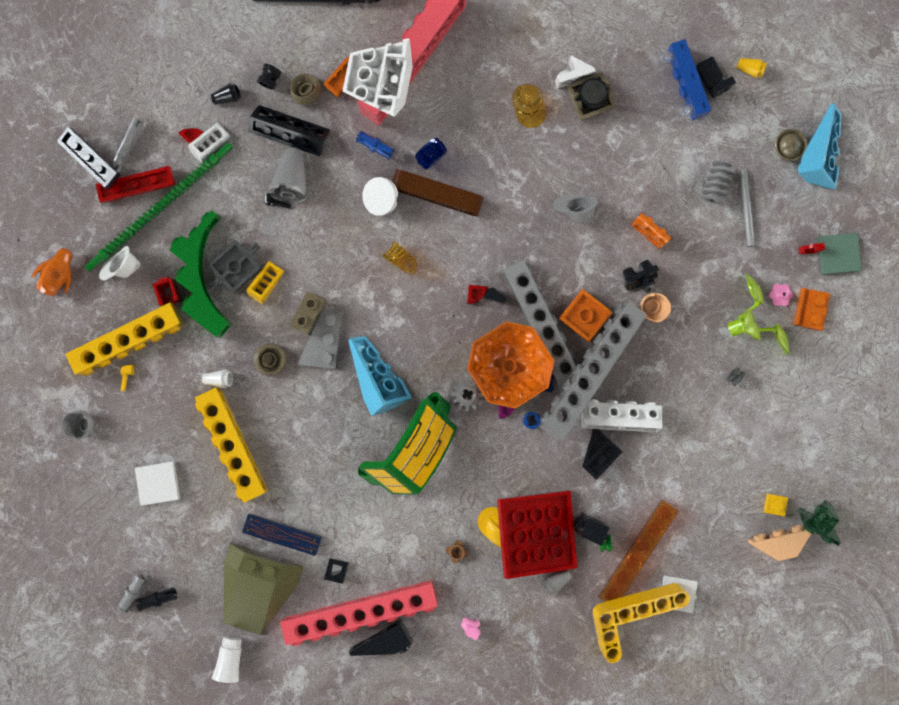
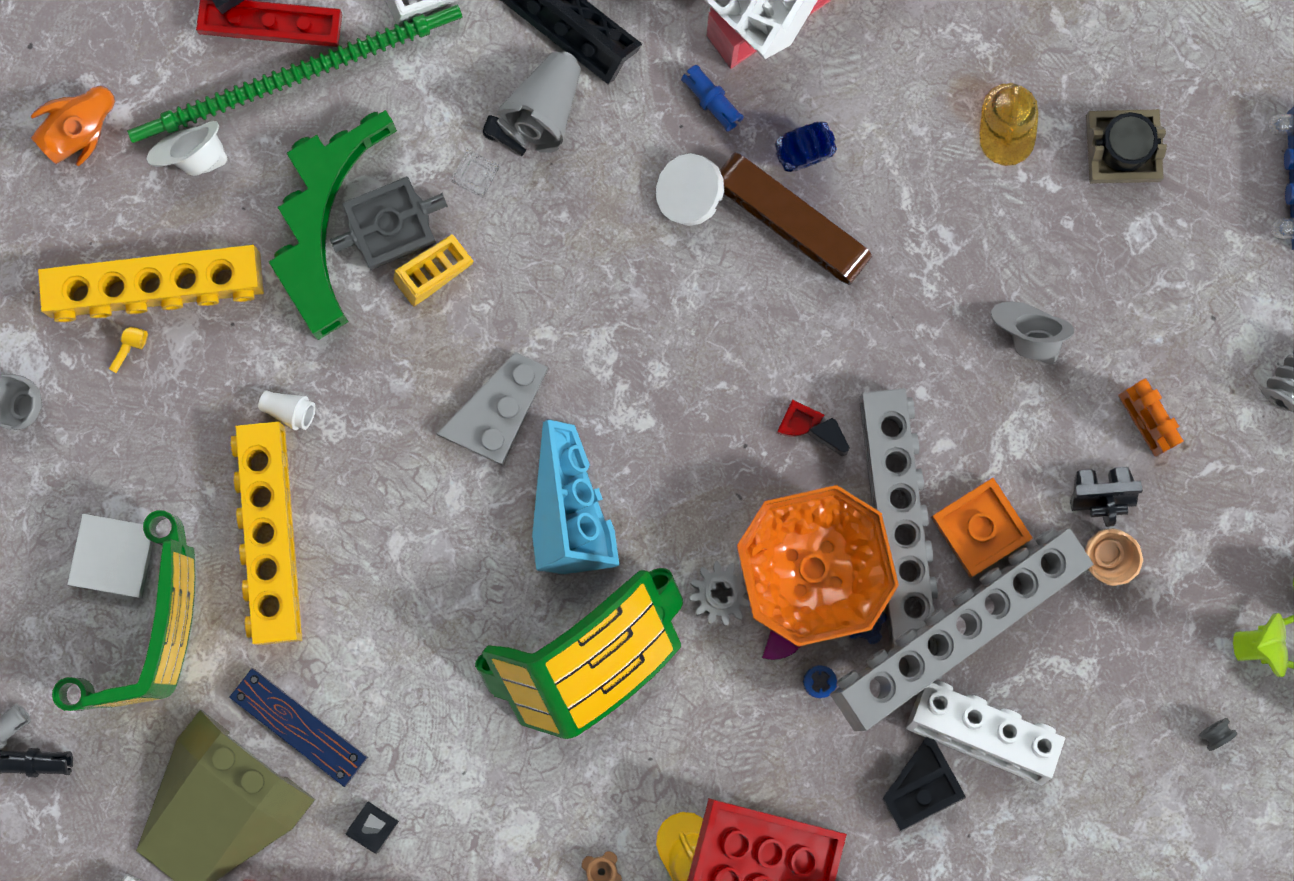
camera: 20 degrees right, 5 degrees down
(162, 284) = (255, 209): red window -> none
(198, 509) = (169, 629): none -> green panel
(270, 359) = (381, 403): dark tan hat -> none
(308, 313) = (489, 349): dark tan brick -> none
(398, 257) = (683, 307): clear yellow piece -> none
(578, 71) = (1118, 94): white slope -> none

